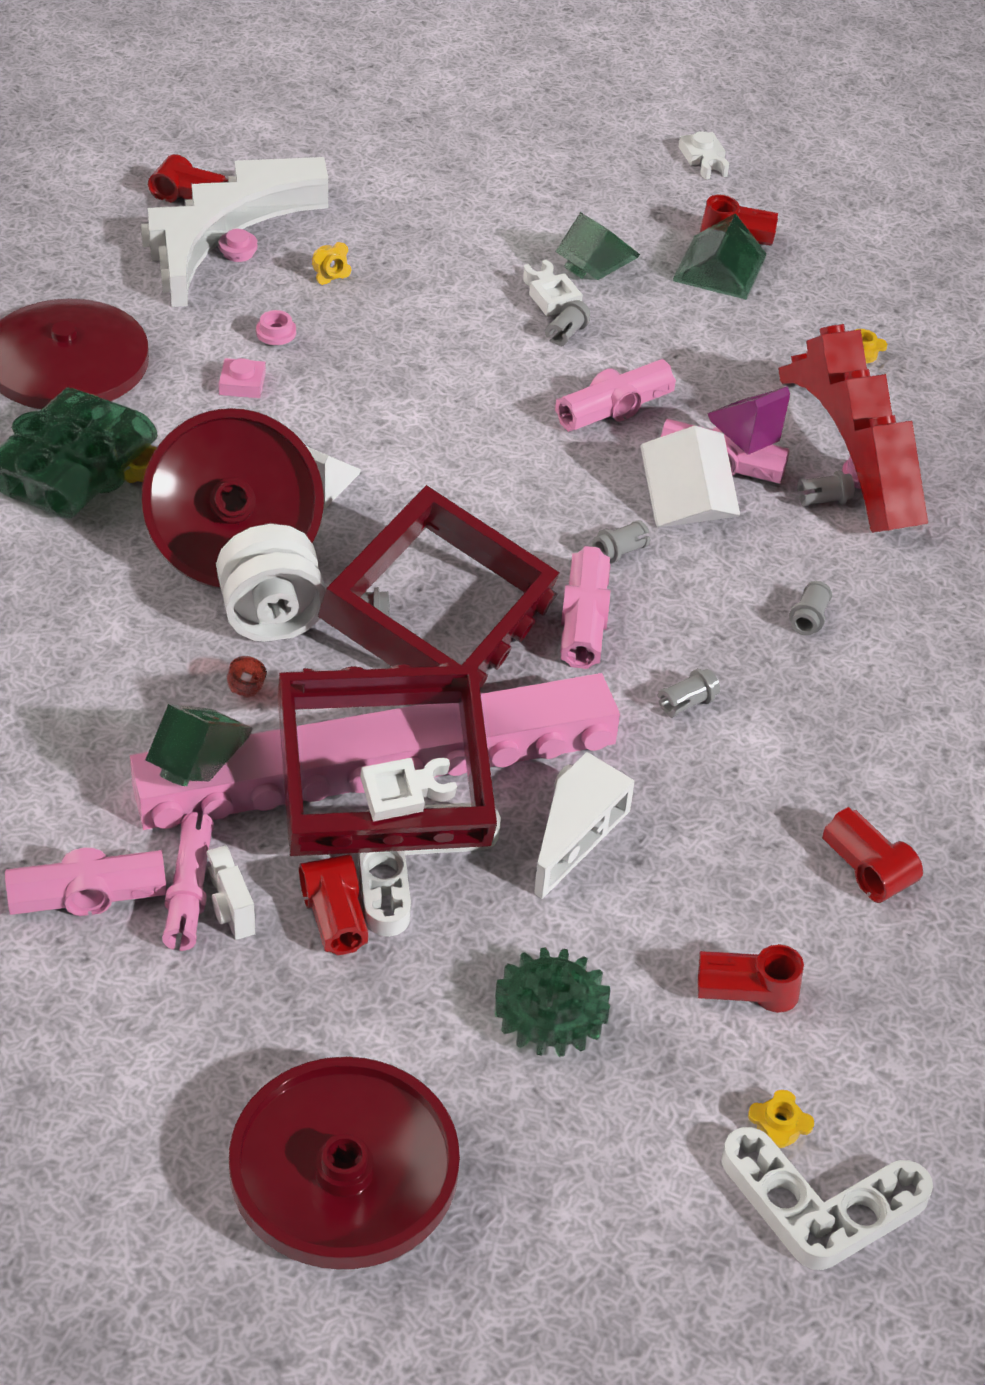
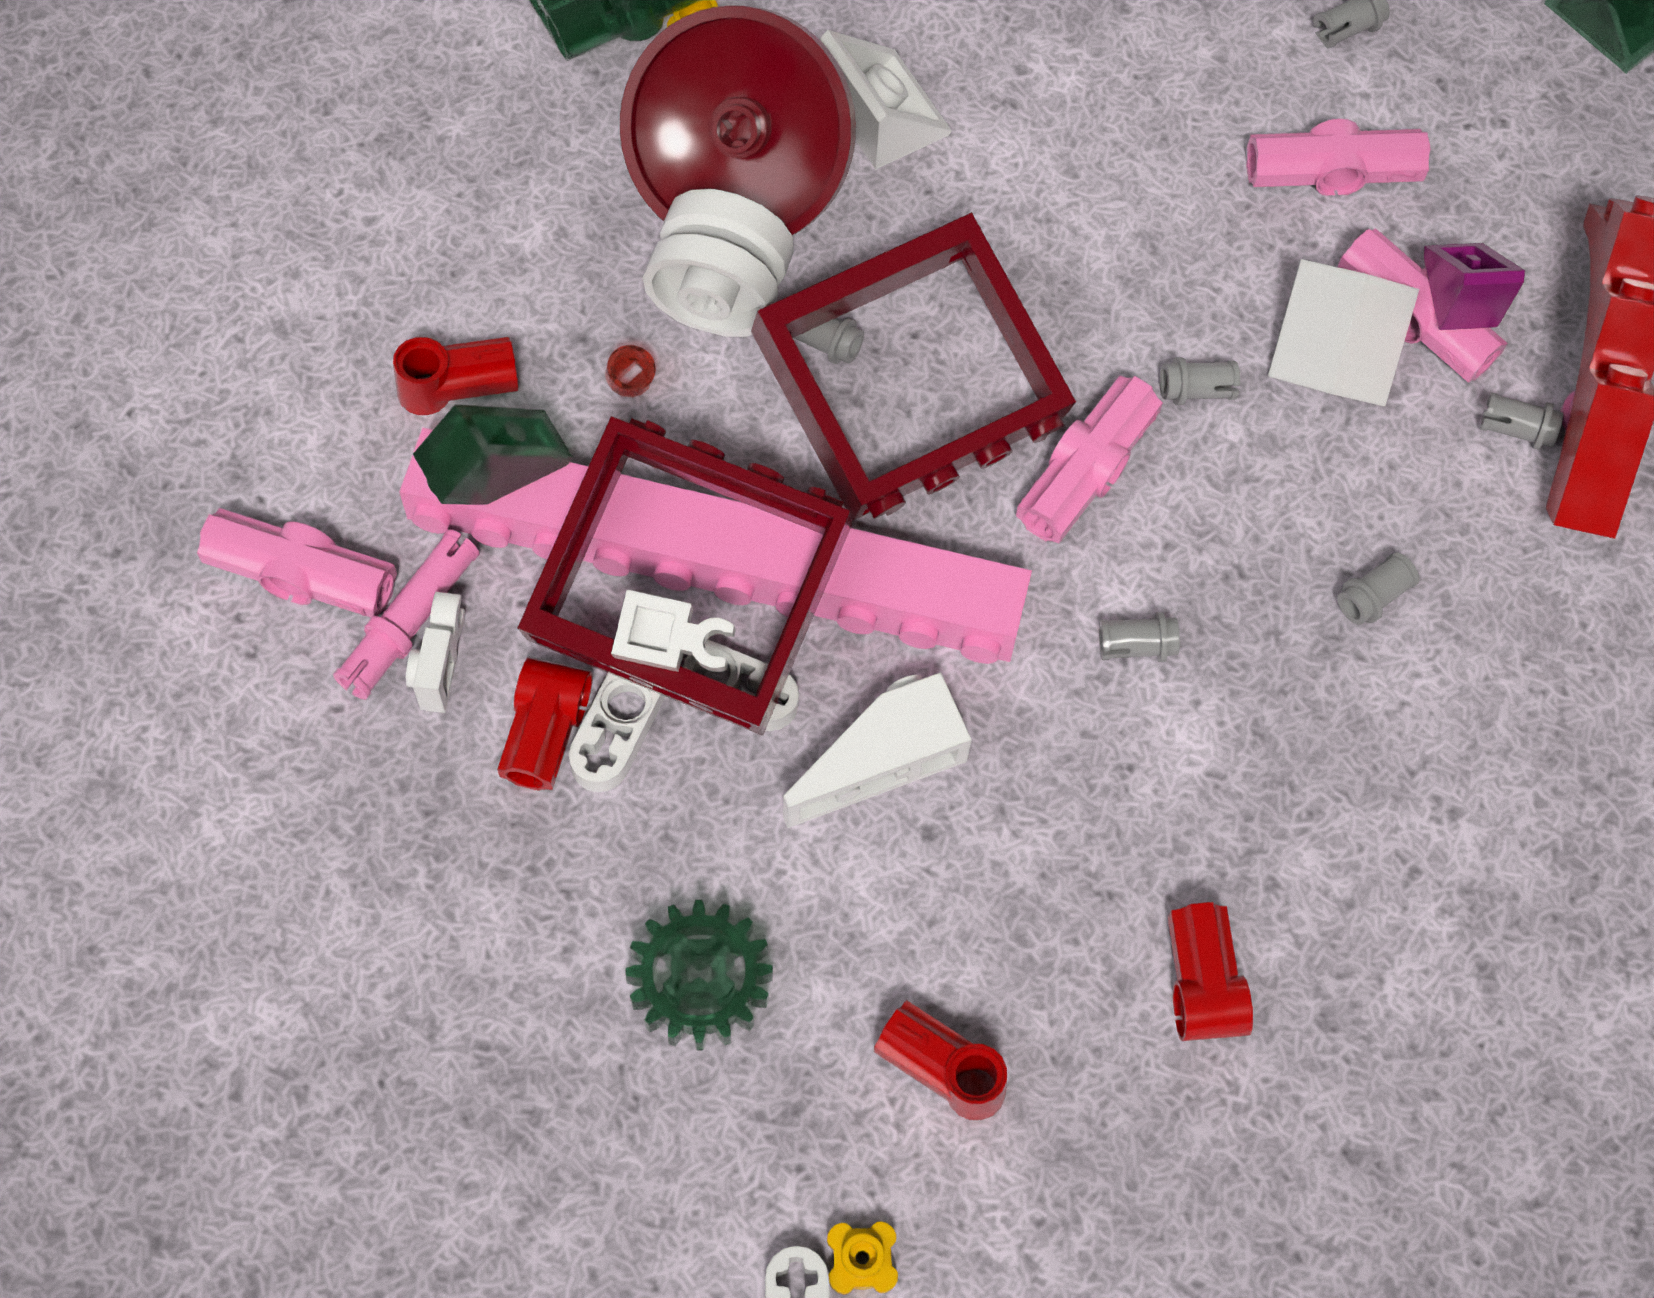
camera: 30 degrees right, 20 degrees up
(109, 726) = (455, 372): none -> red piece
(344, 1162) = (342, 1059): dark red dish -> none

